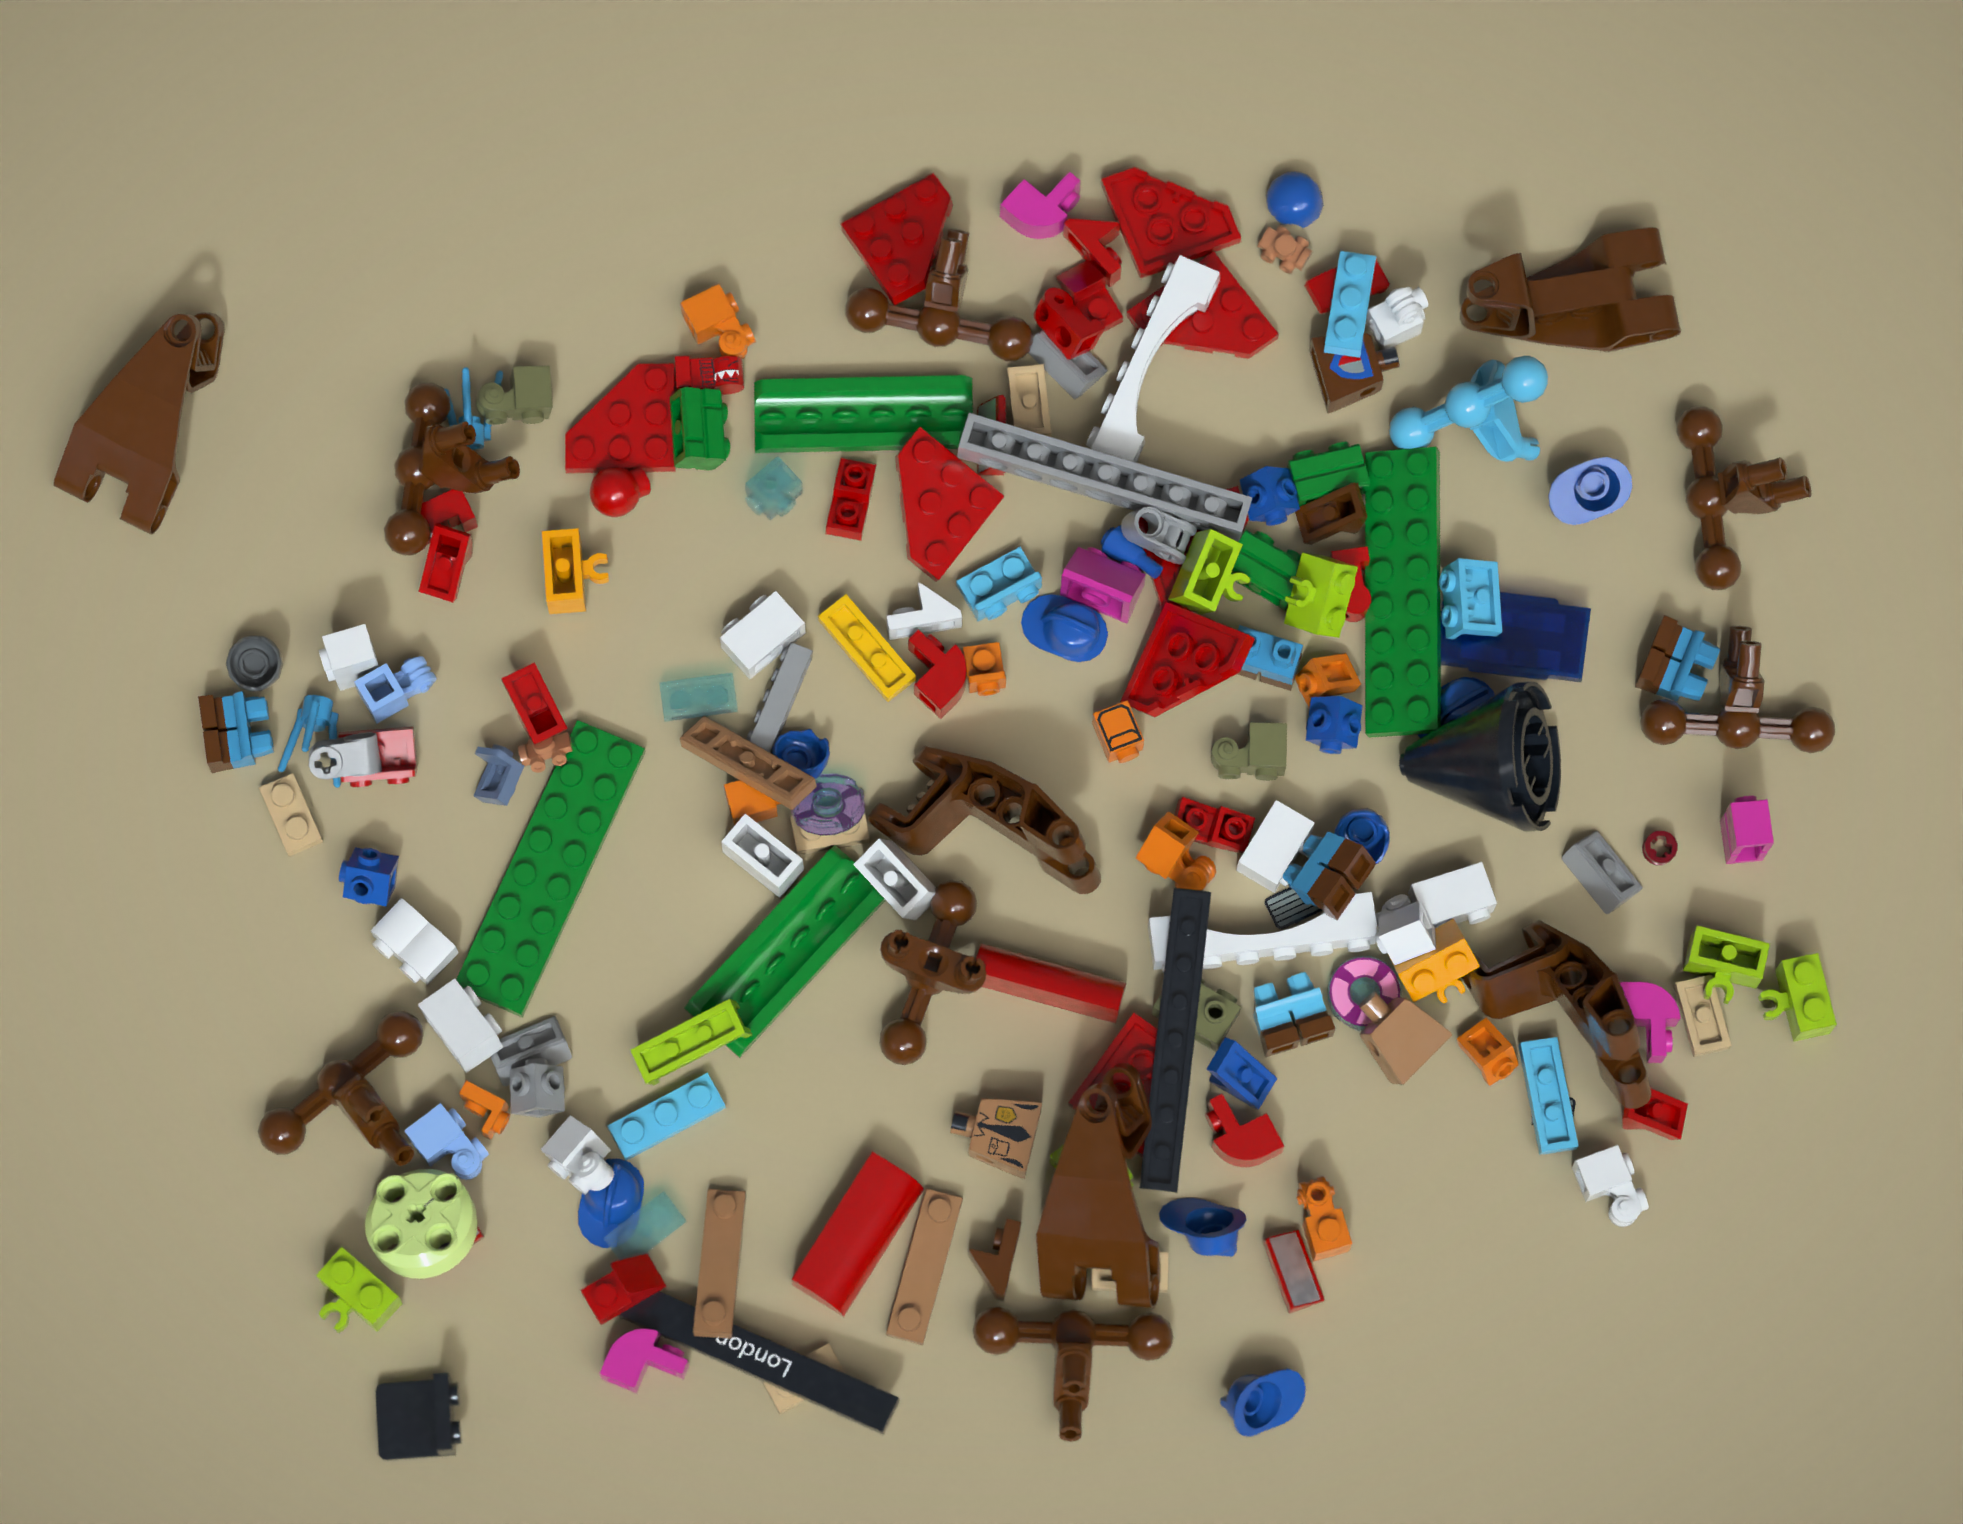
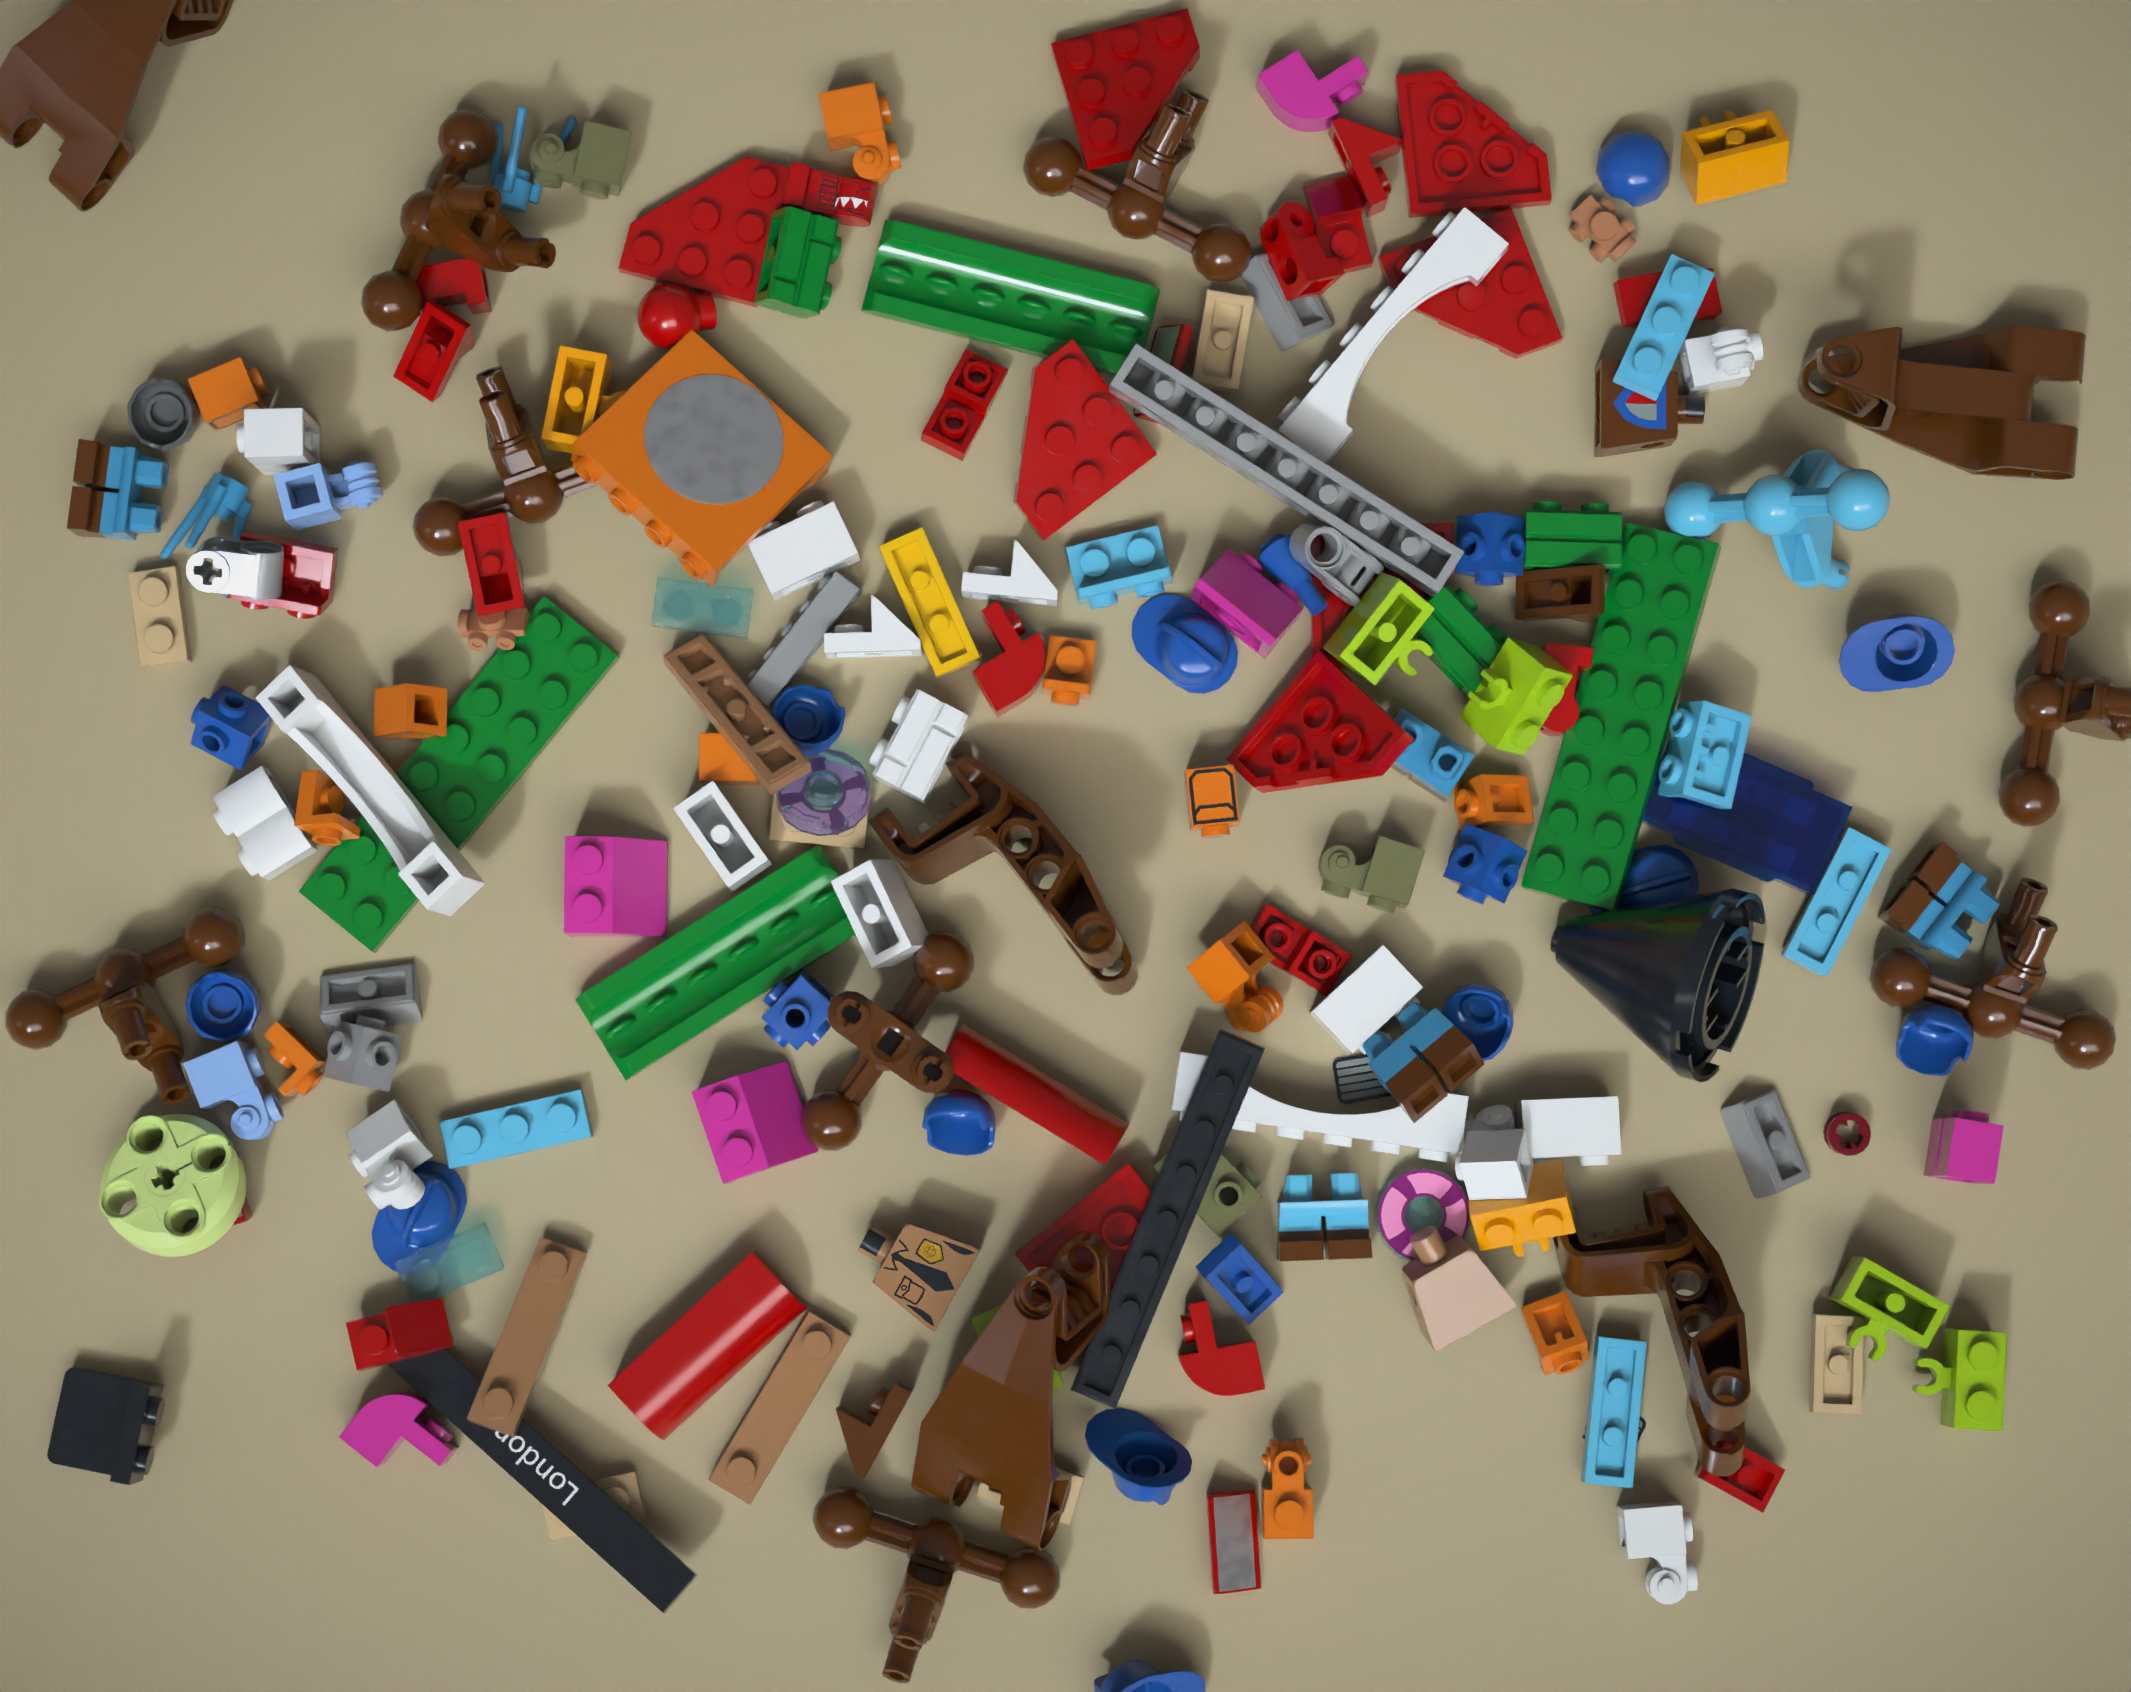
camera: 15 degrees right, 10 degrees up
(299, 635) = (227, 391): none -> orange brick
(357, 1292) = (73, 1246): lime brick -> none
(421, 1082) = (223, 1005): none -> blue hair
(456, 920) = (320, 808): none -> orange bracket
(461, 1025) = (292, 947): white brick -> none
(491, 890) = (415, 841): none -> white arch
(500, 775) = (427, 642): sand blue bracket -> none
(502, 829) = (410, 712): none -> orange brick
(533, 621) = (530, 489): none -> reddish brown connector
(667, 585) = (699, 457): none -> panel
(689, 1041) = (566, 1050): lime container -> none
(691, 916) = (615, 887): none -> dark pink slope
(773, 490) = (869, 368): clear light blue brick -> none
(843, 682) = (887, 638): none -> white slope
(844, 1060) = (753, 1121): none -> dark pink slope
(865, 957) = (803, 994): none -> blue brick
(890, 752) = (919, 745): none -> white brick
(999, 1018) = (959, 1123): none -> blue hair
(1365, 171) = (1734, 156): none -> light orange brick
(1600, 682) = (1836, 902): none -> medium azure plate
(1654, 1010) = (1778, 1340): dark pink brick -> none
(1701, 760) = (1933, 1039): none -> blue hair

